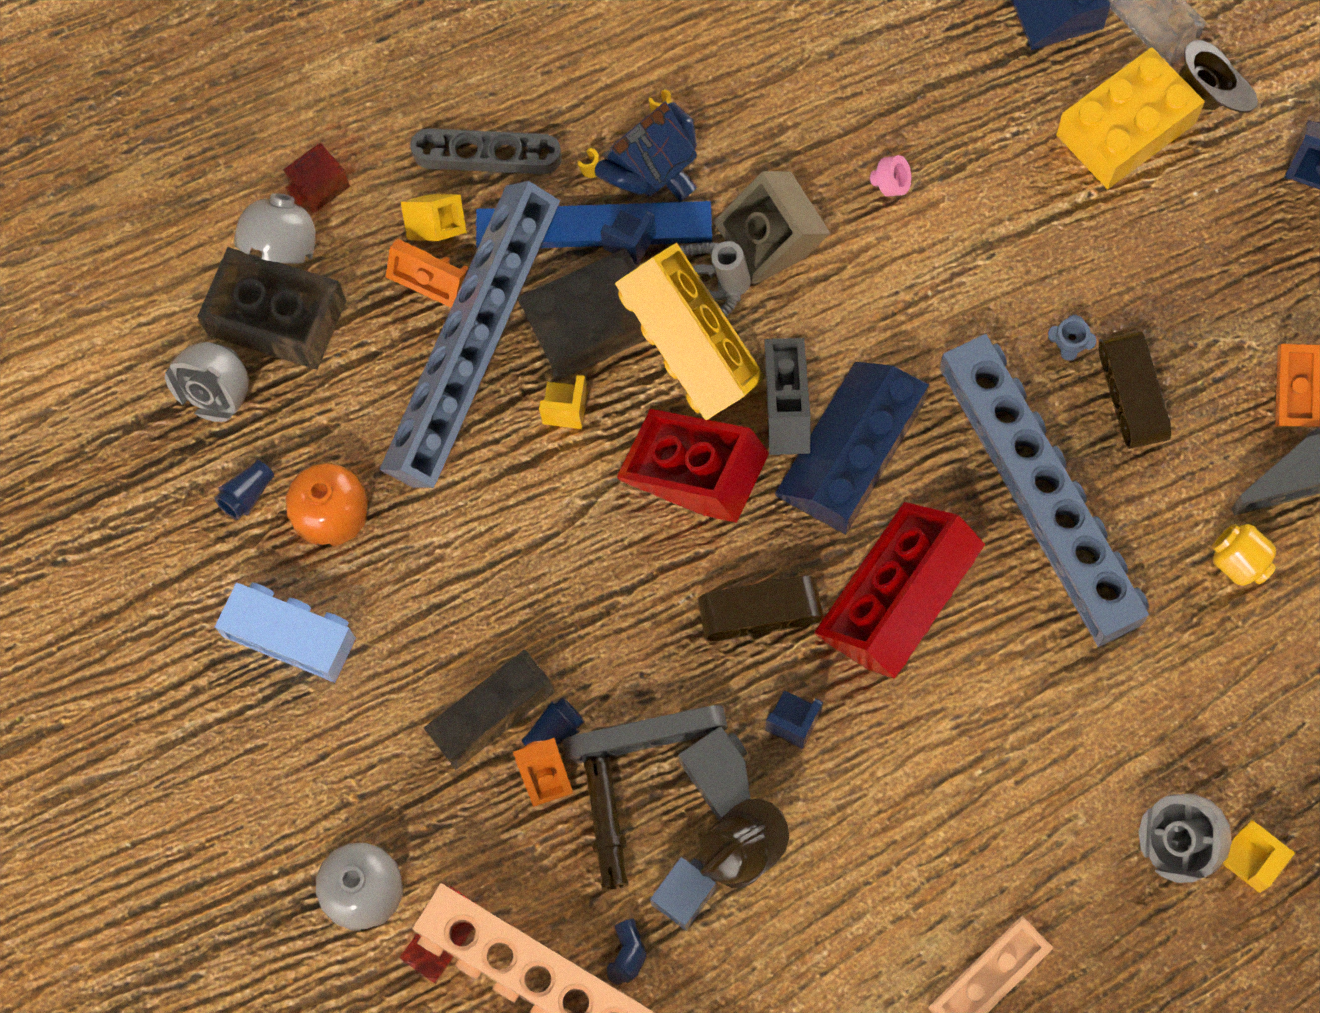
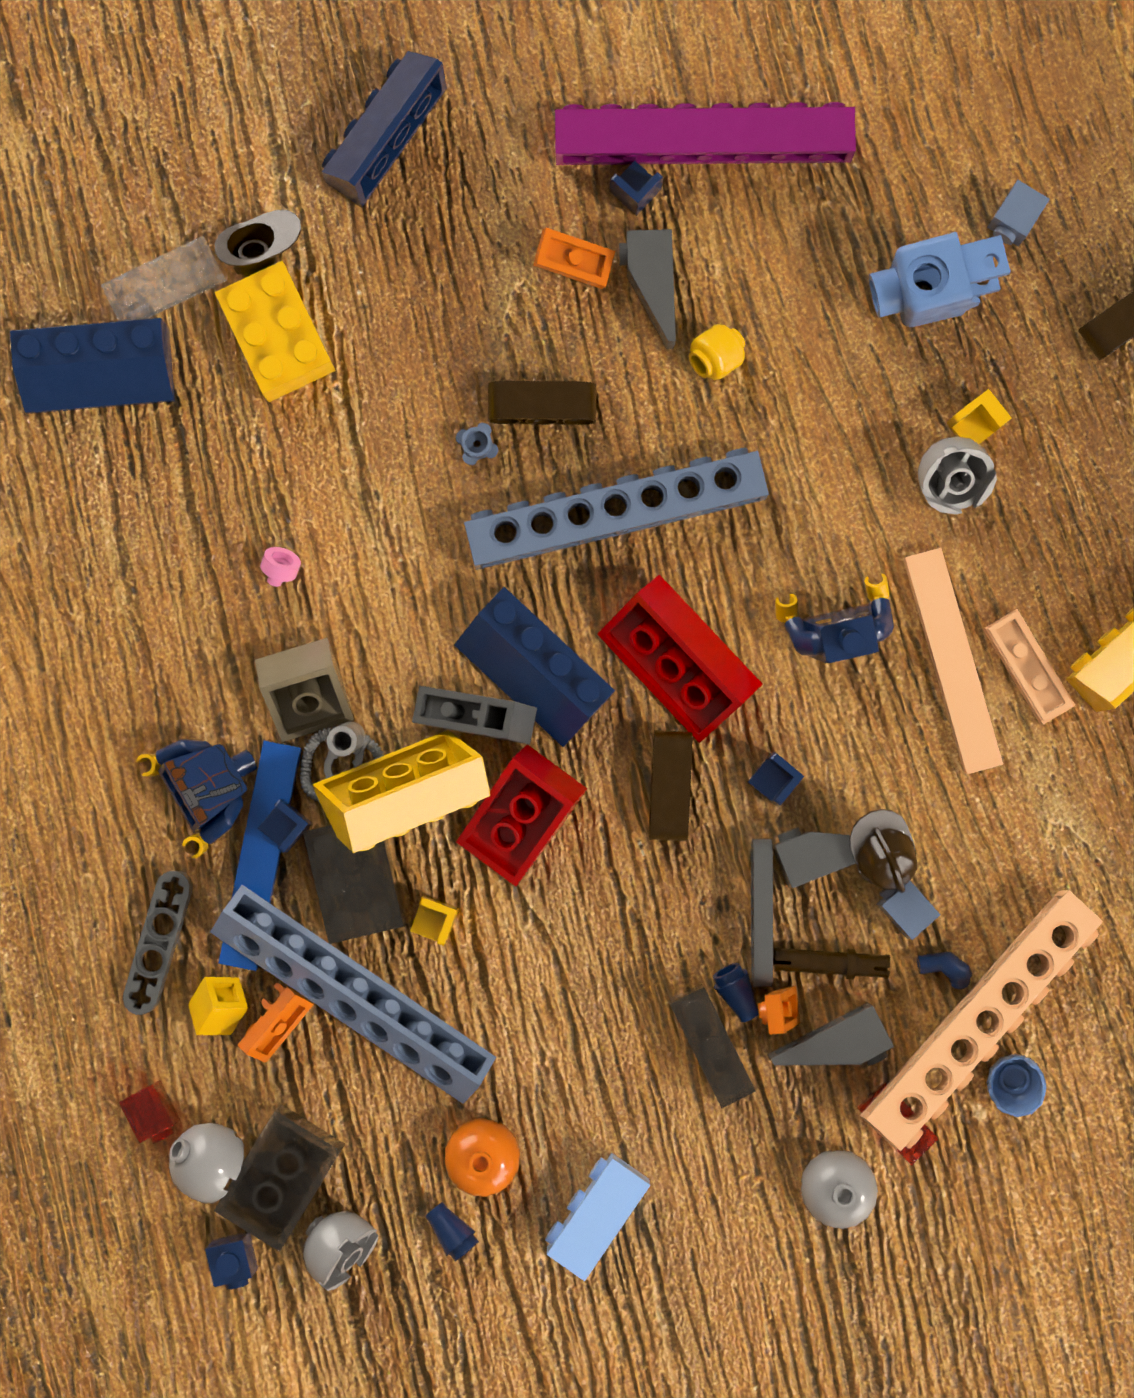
camera: 85 degrees left, 15 degrees up
(180, 283) = (232, 1260): none -> dark blue brick
(522, 854) = (843, 1041): none -> dark grey slope
(974, 889) = (953, 661): none -> light nougat tile
(975, 753) = (842, 632): none -> dark blue torso

